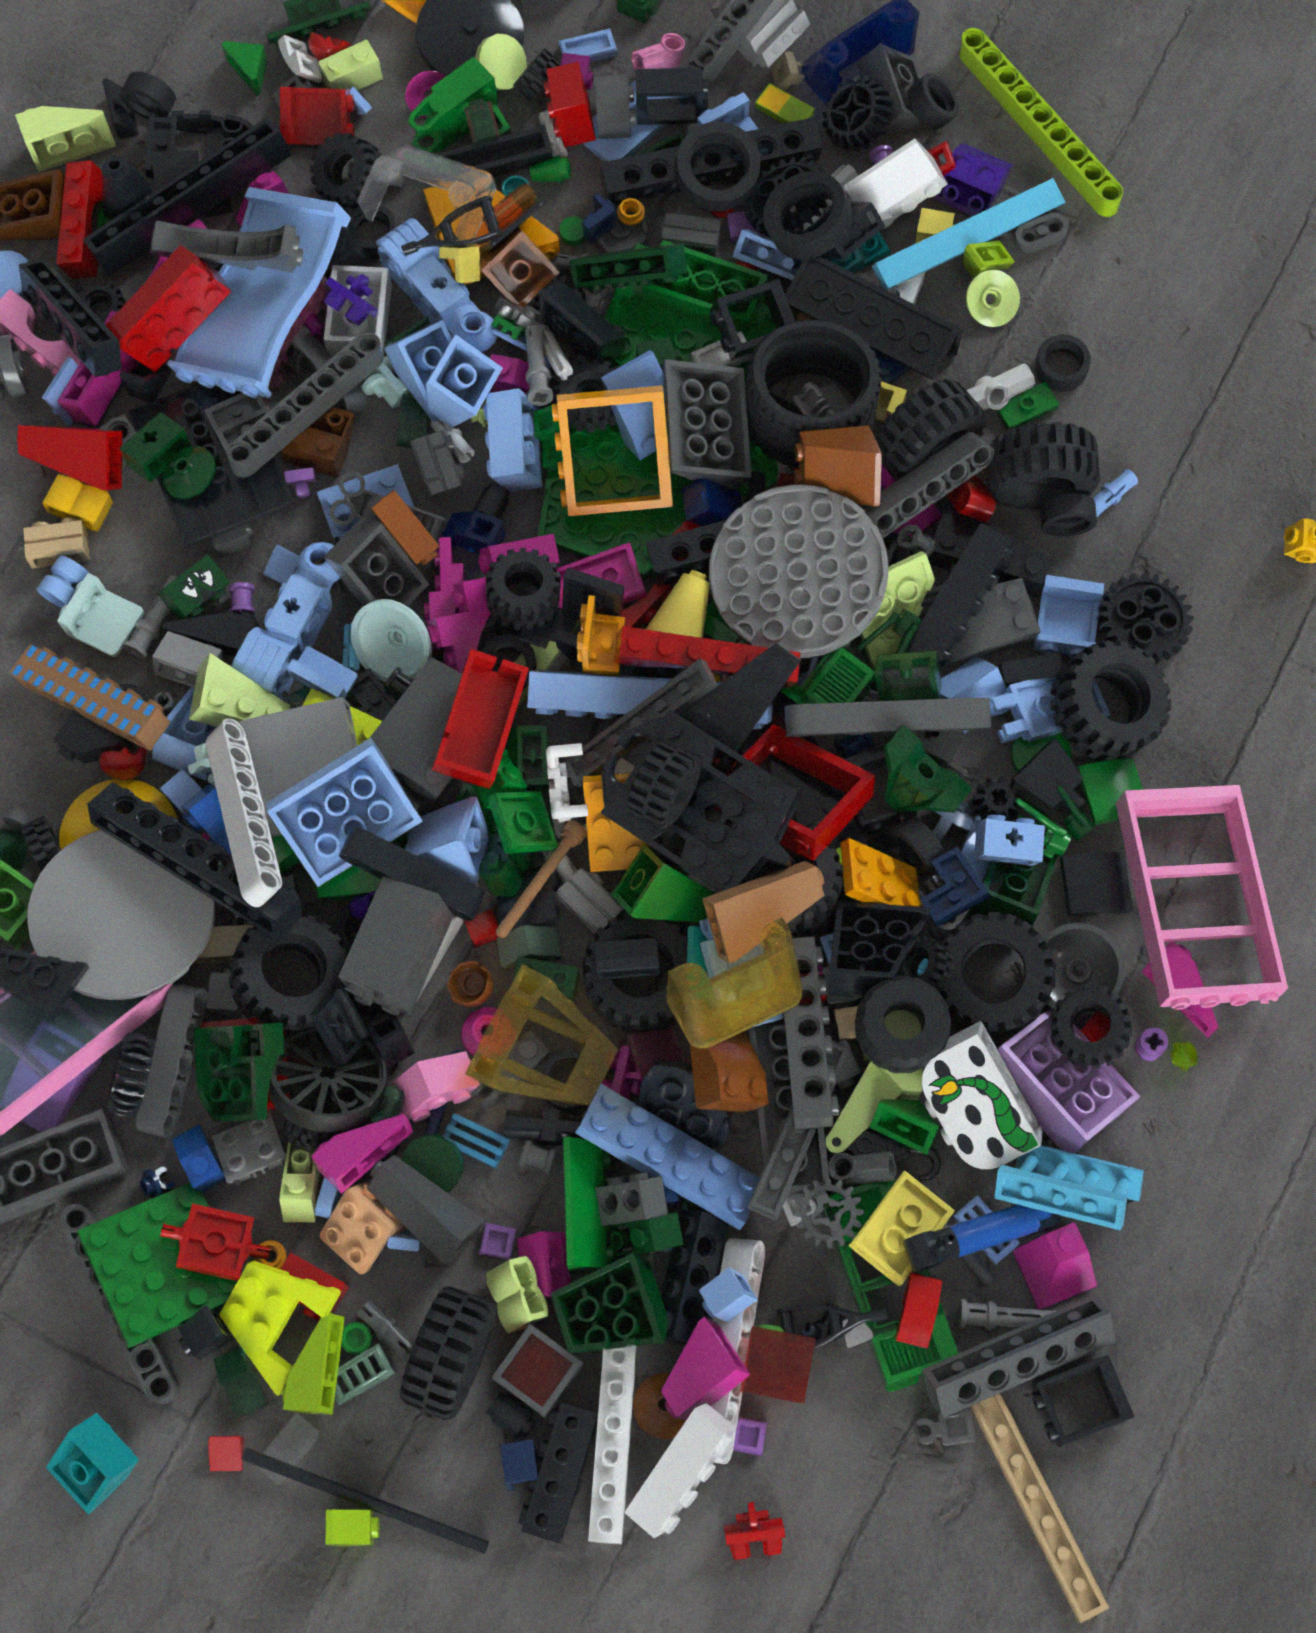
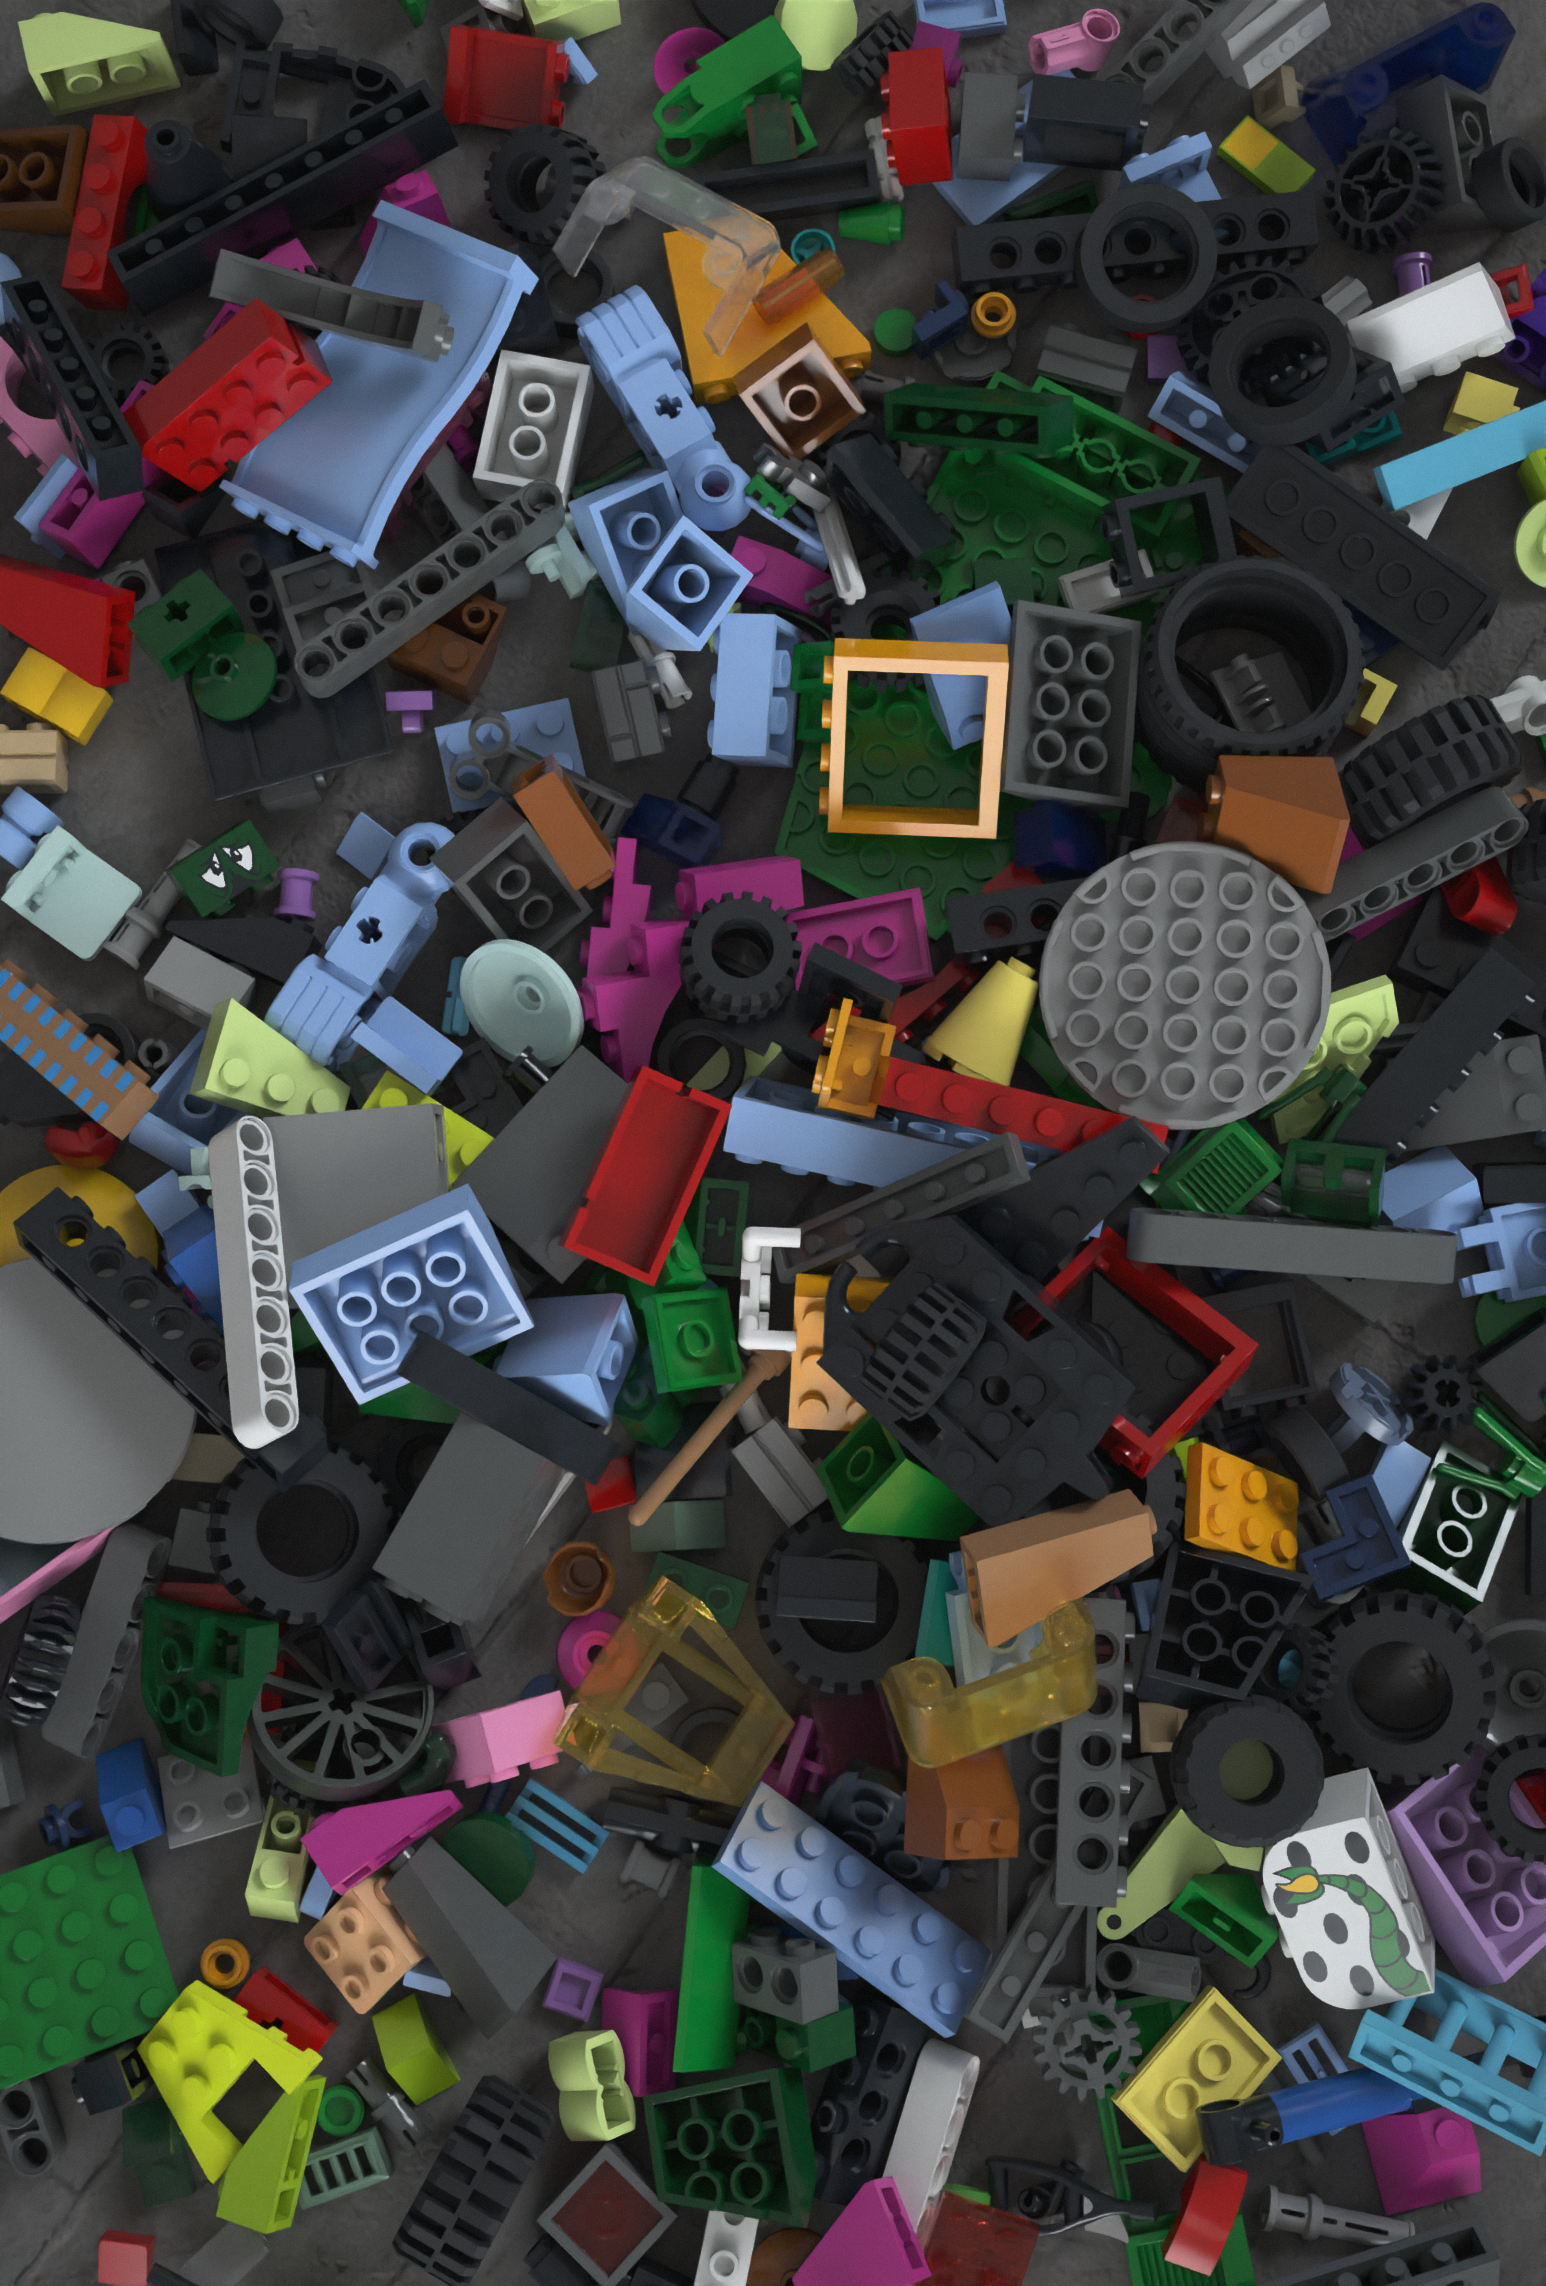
camera: 10 degrees right, 10 degrees up
(215, 1242) = (141, 1942): red plate -> none
(339, 294) = (508, 403): dark purple hips -> none
(360, 904) = (426, 1437): dark purple pin -> none
(400, 1294) = (413, 2049): none -> lime slope
(447, 231) = (692, 325): black piece -> none
(466, 262) = (717, 375): light yellow panel -> none
(514, 223) = (797, 322): black piece -> none
(537, 375) = (809, 586): light grey pin -> none
(727, 1295) = (913, 2146): light blue brick -> none
(917, 780) = (1309, 1372): dark green piece -> none
(925, 542) = (1384, 950): dark grey bush -> none
(993, 845) = (1480, 1481): light blue brick -> none

